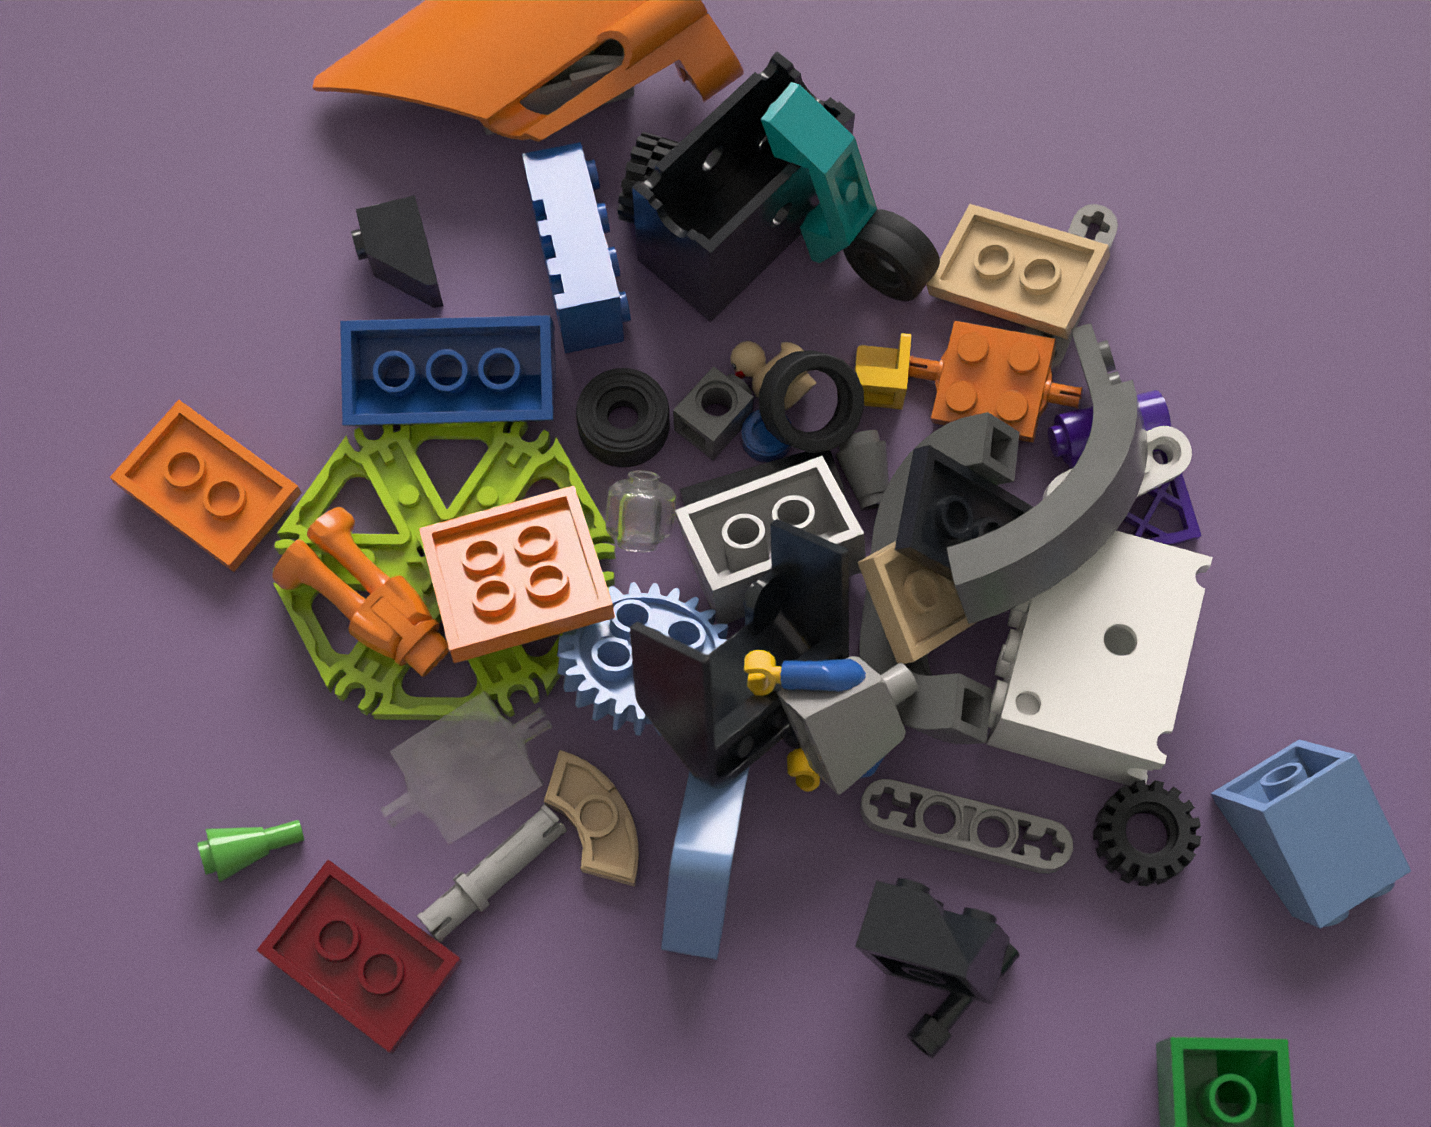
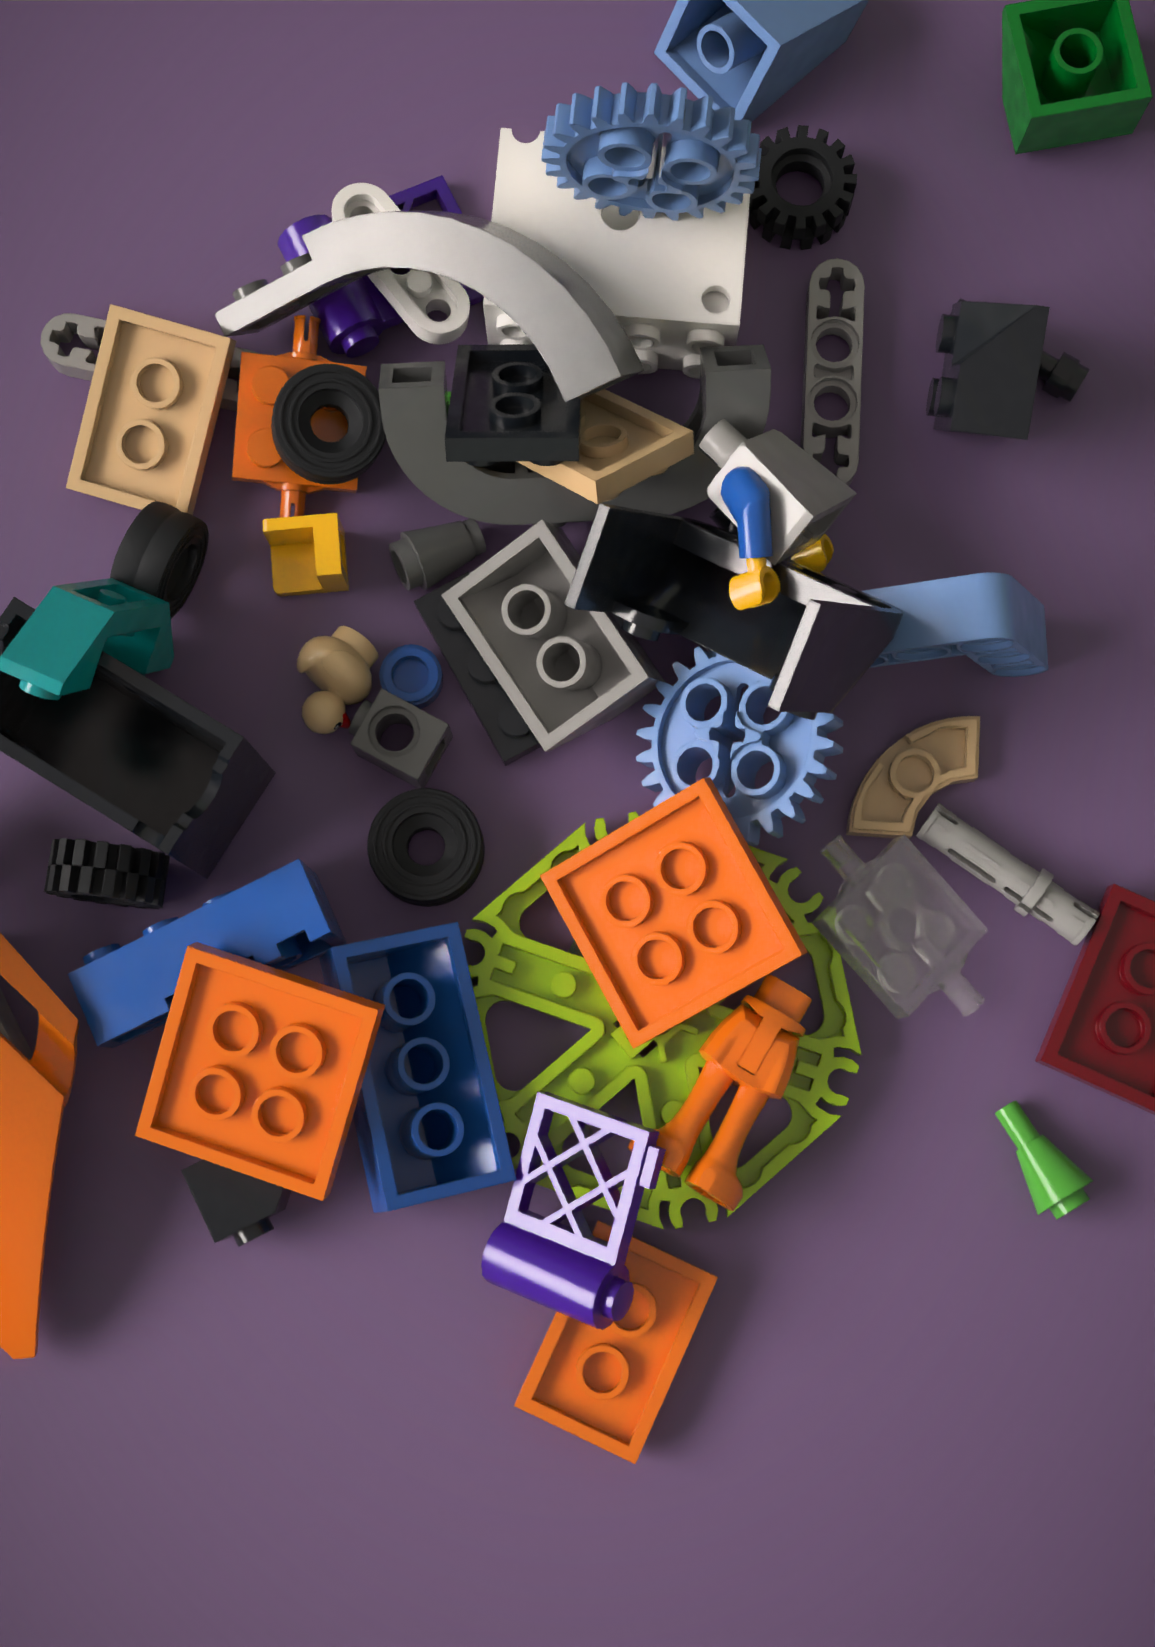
camera: 100 degrees left, 10 degrees up
(280, 439) = (562, 1263): none -> dark purple piece
(468, 248) = (259, 1070): none -> orange plate
(640, 511) = (549, 796): clear head -> none
(847, 412) = (356, 648): black tyre -> none
(975, 362) = (335, 388): none -> black tyre
(1147, 625) = (651, 152): none -> medium blue gear

